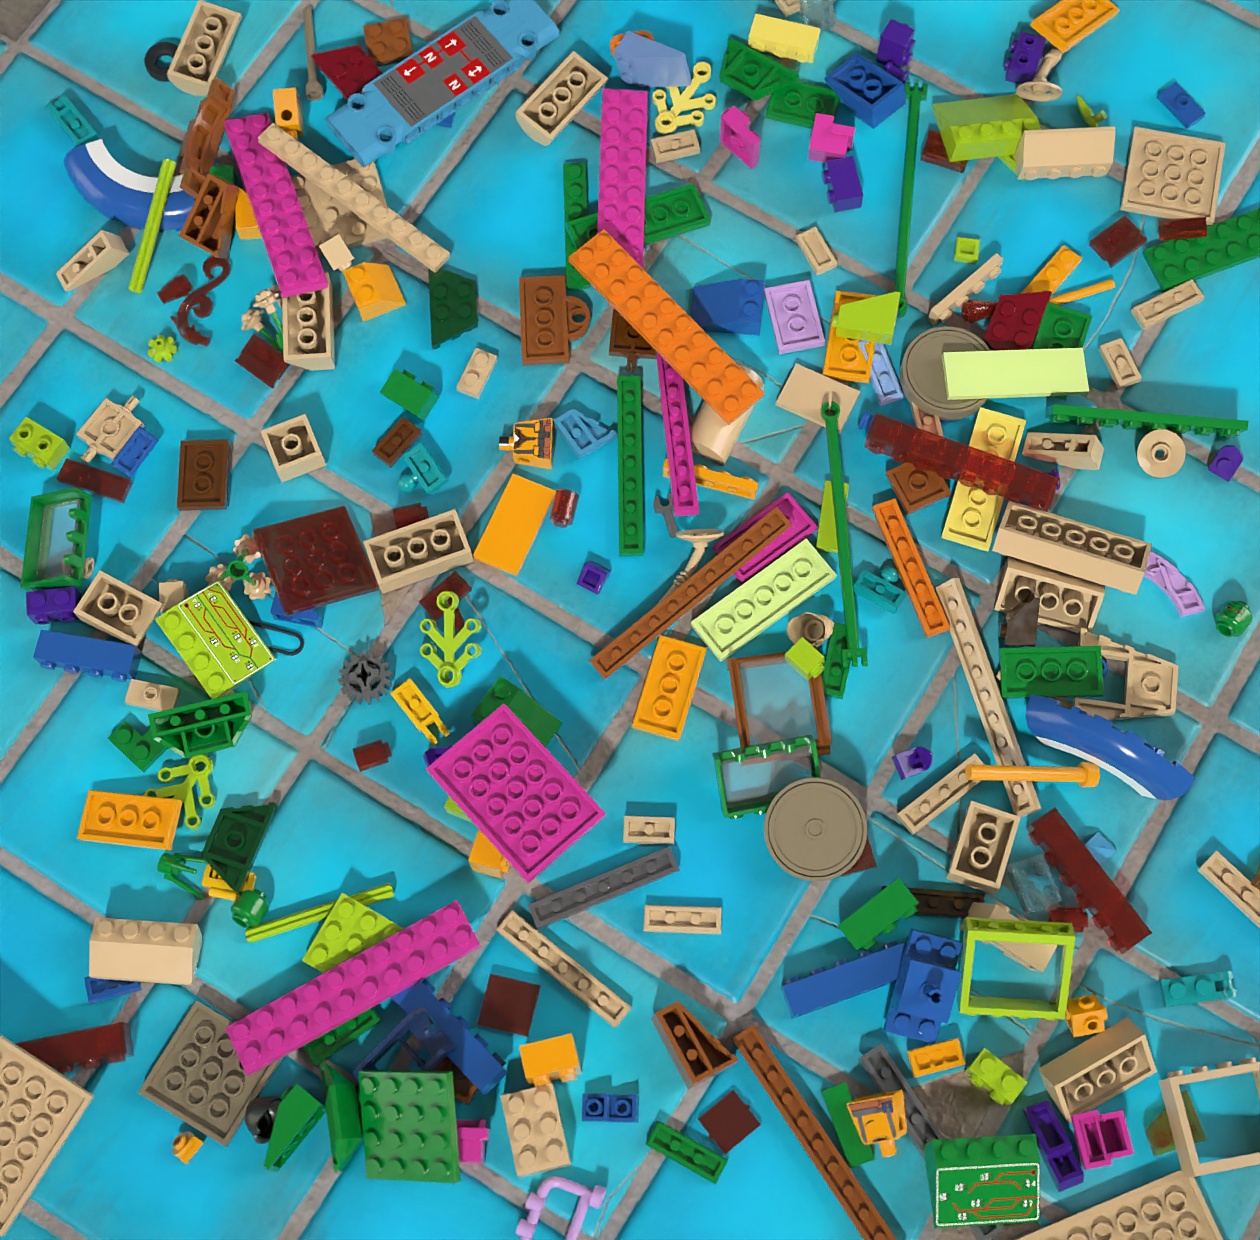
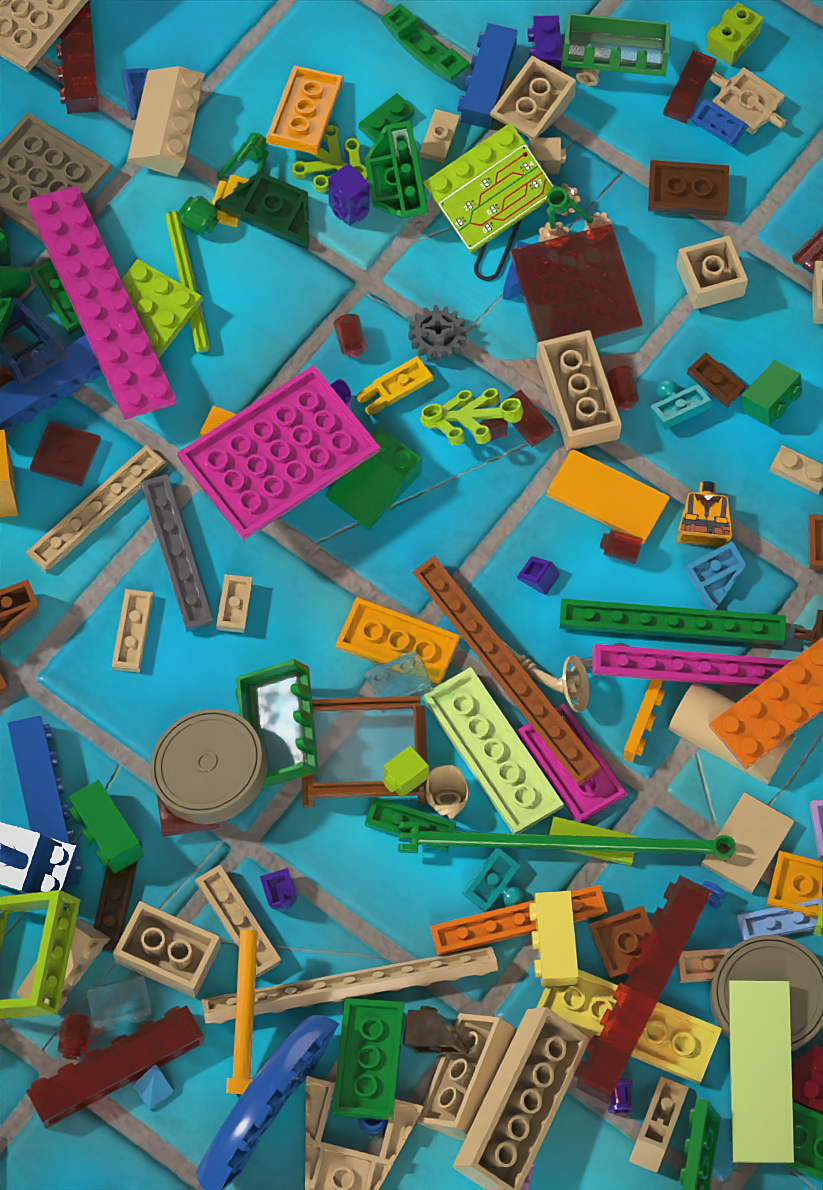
camera: 90 degrees right, 5 degrees down
(54, 718) = (423, 46): none -> green slope
(227, 766) = (349, 195): none -> dark purple brick
(712, 677) = (400, 677): none -> clear light blue bracket
(930, 533) = (554, 939): none -> light yellow brick

